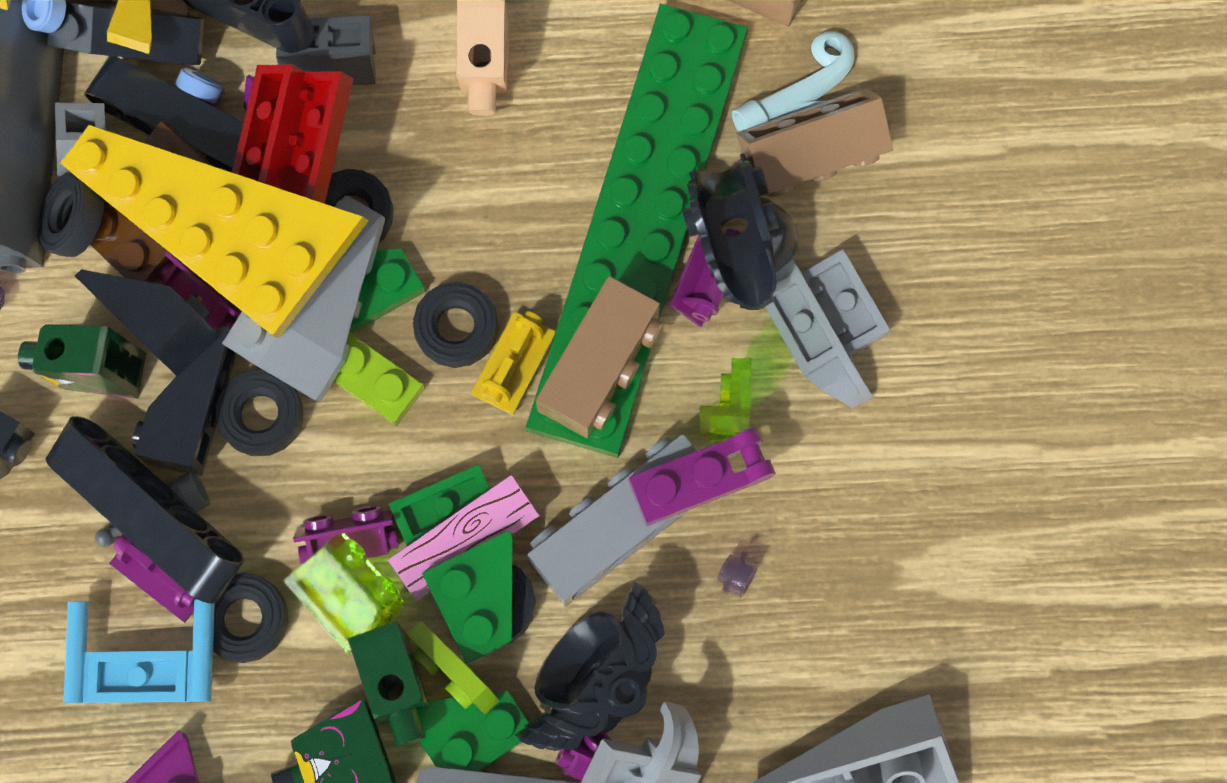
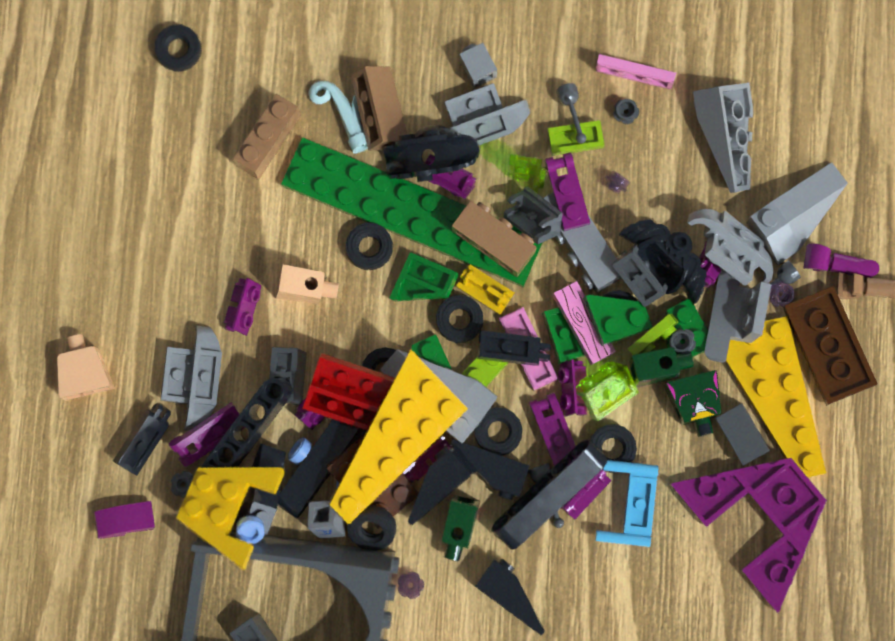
camera: 75 degrees left, 5 degrees up
(270, 508) = (553, 428): none -> magenta plate
(403, 413) = (512, 348): none -> black hinge
(413, 450) = (519, 324): none -> bright pink tile
(445, 710) = (687, 335): none -> dark grey plate
(517, 253) = (423, 280): none -> green wing
(553, 624) = (639, 277): none -> dark grey hinge
(561, 133) = (369, 262): none -> black tyre
(648, 424) = (534, 215): none -> dark grey hinge
(811, 491) = (563, 138): none -> lime plate
(887, 571) = (626, 104): none -> dark grey plate
(888, 467) = (568, 95): none -> dark grey hinge
(921, 301) = (478, 64): none -> light grey brick
(953, 585) = (635, 71): none -> bright pink tile

